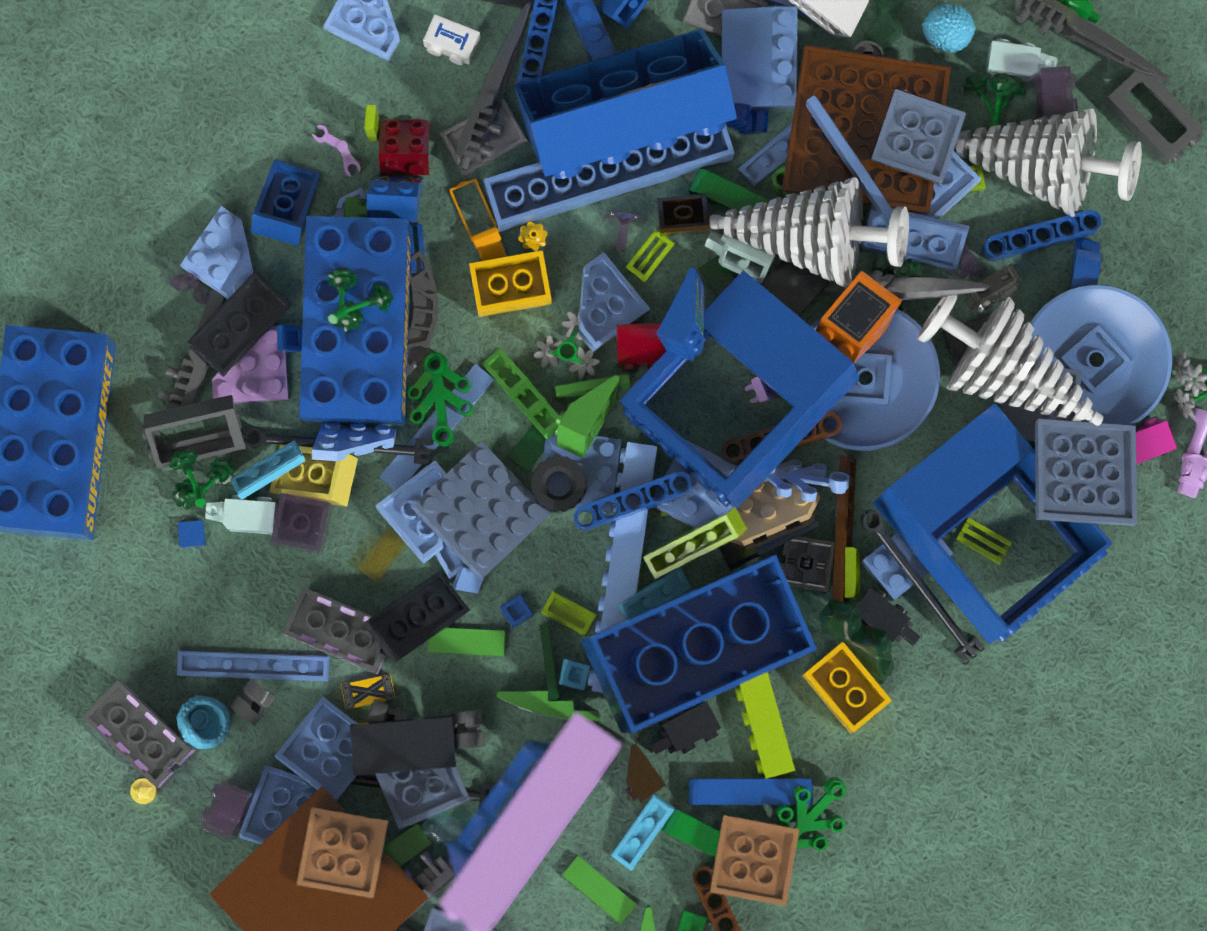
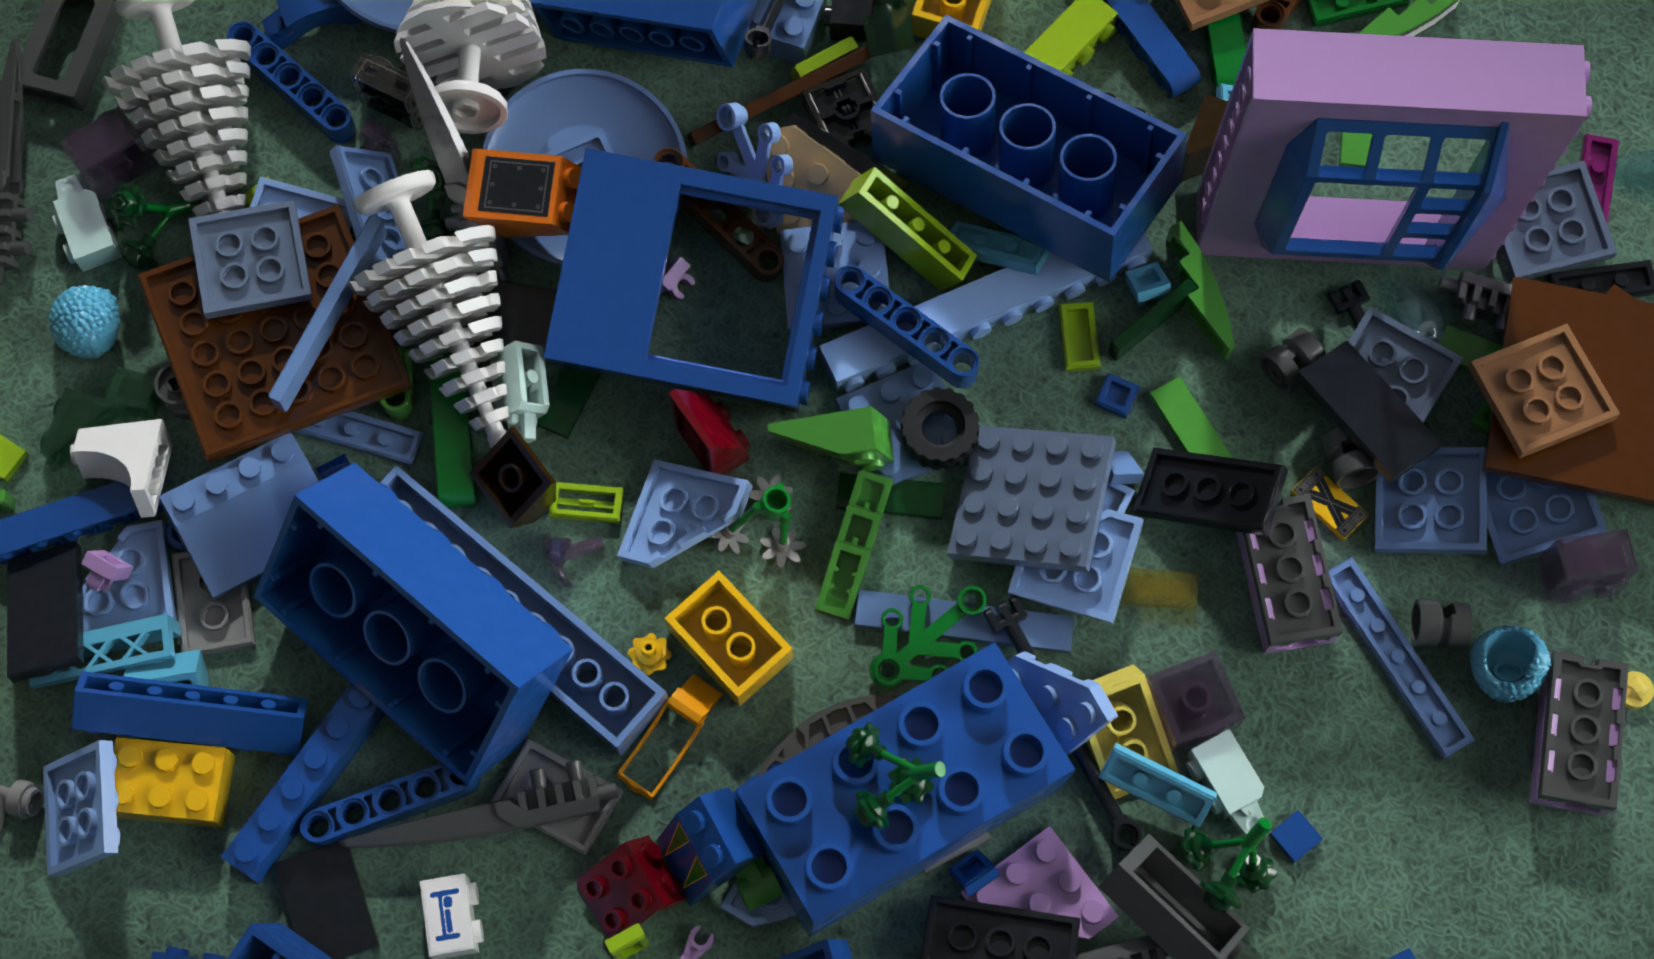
camera: 120 degrees left, 10 degrees down
(582, 387) = (793, 468): bright green tile -> none
(684, 323) = (651, 371): blue slope -> none

